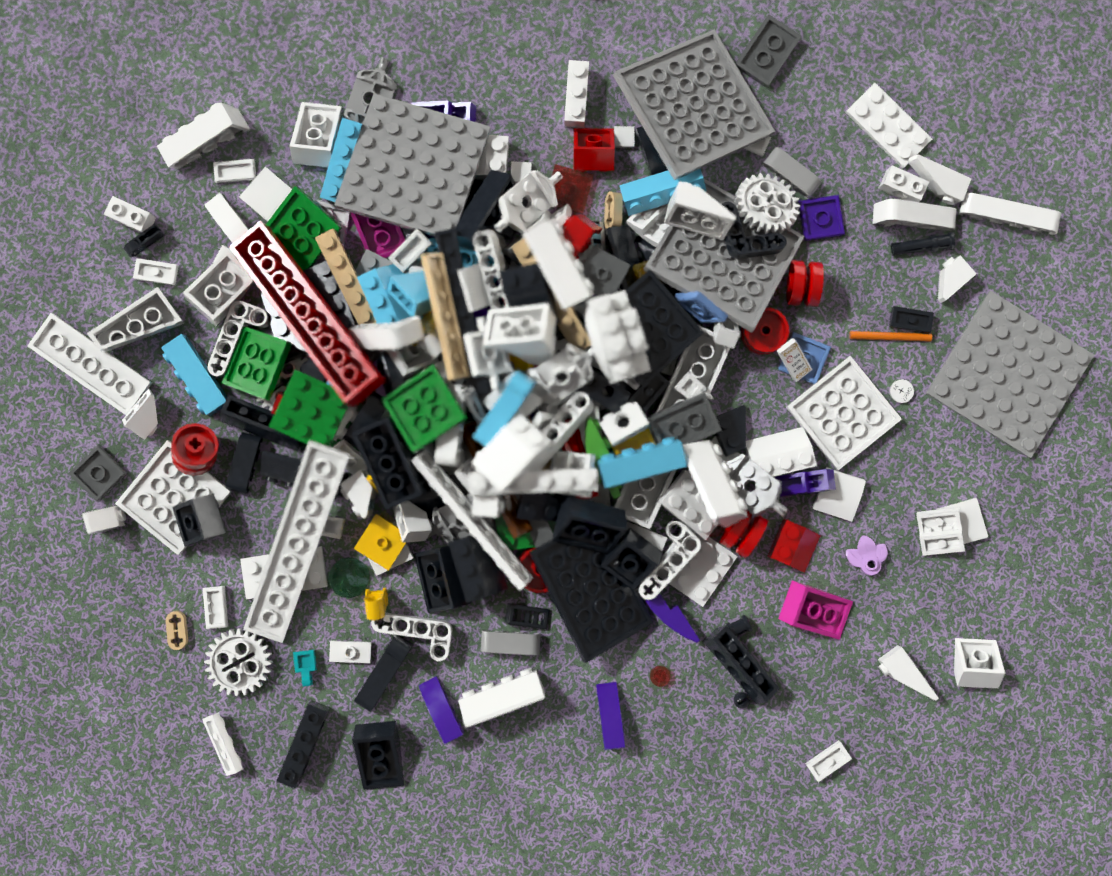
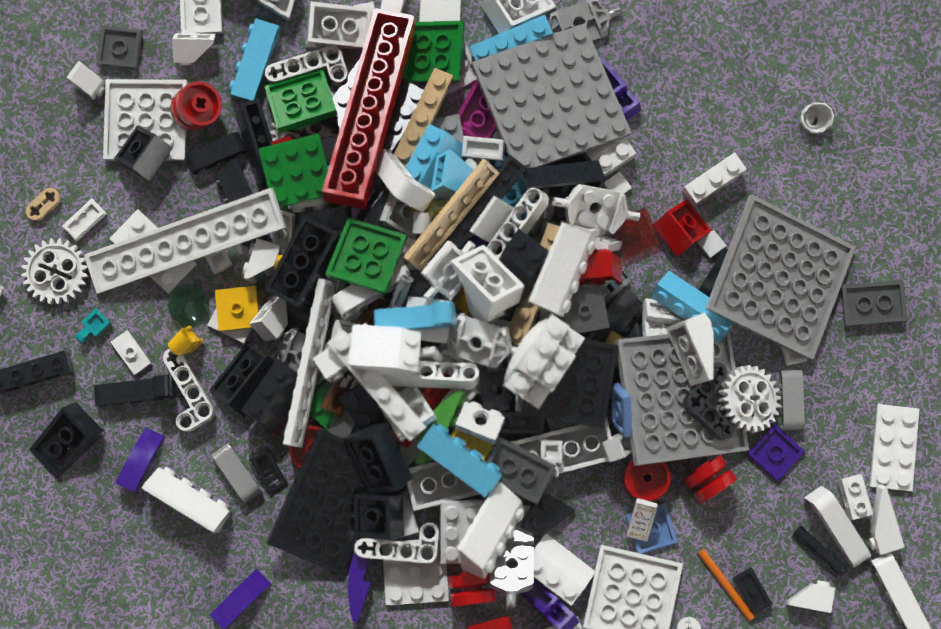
camera: 50 degrees right, 5 degrees down
(613, 209) = (645, 281): tan beam -> none
(660, 676) = (303, 614): clear red tile -> none

